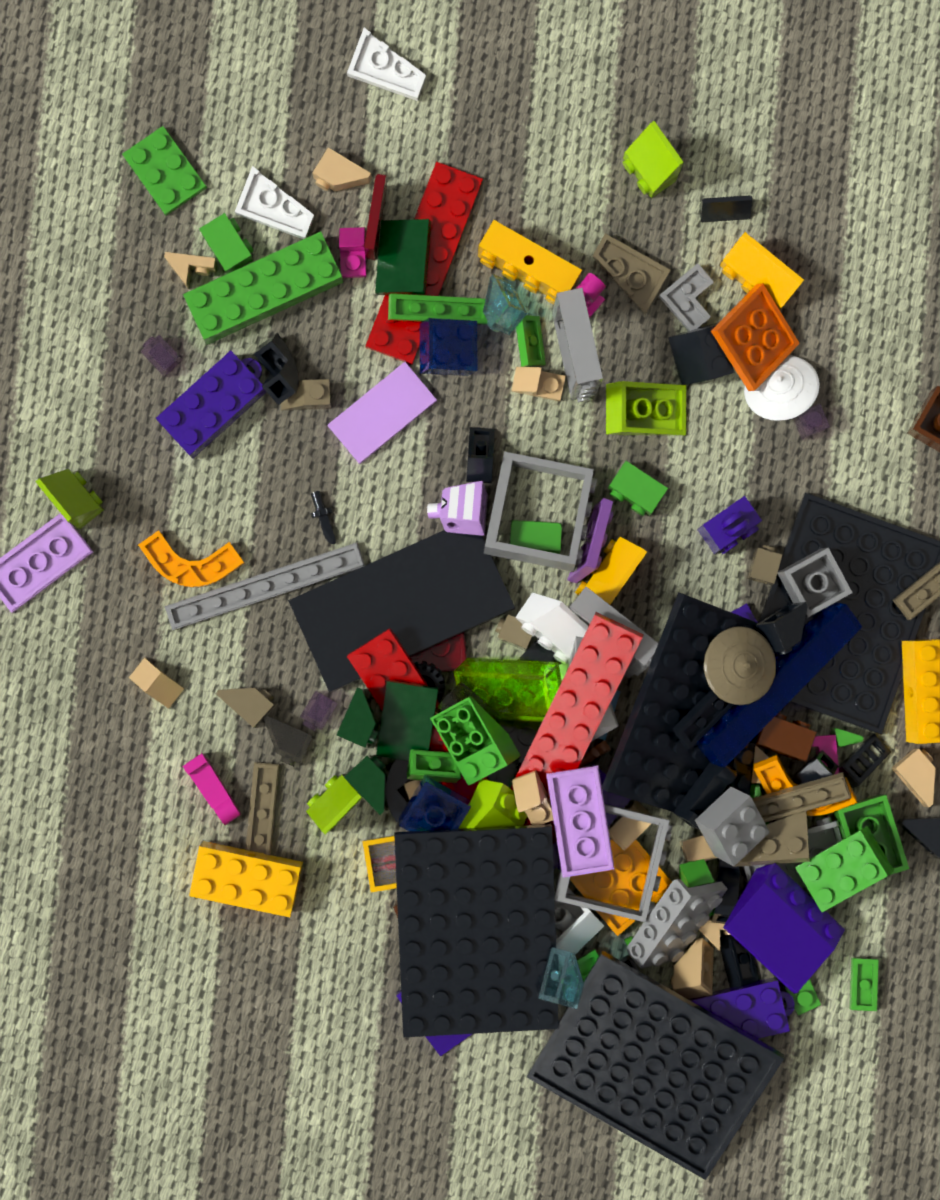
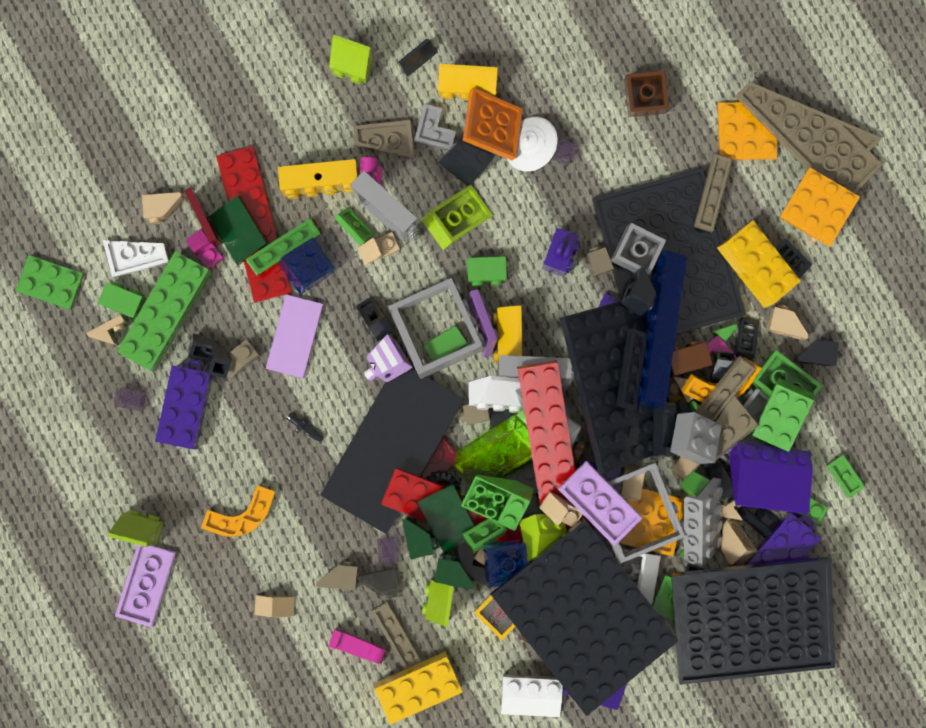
camera: 25 degrees left, 0 degrees up
(264, 586) = (298, 497): light grey tile -> none
(359, 974) = (531, 695): none -> white slope
(385, 69) = (141, 120): white wing -> none
(502, 306) = (322, 216): clear light blue slope -> none
(562, 979) = (659, 609): clear light blue slope -> none
(739, 665) = (629, 335): dark tan hat -> none

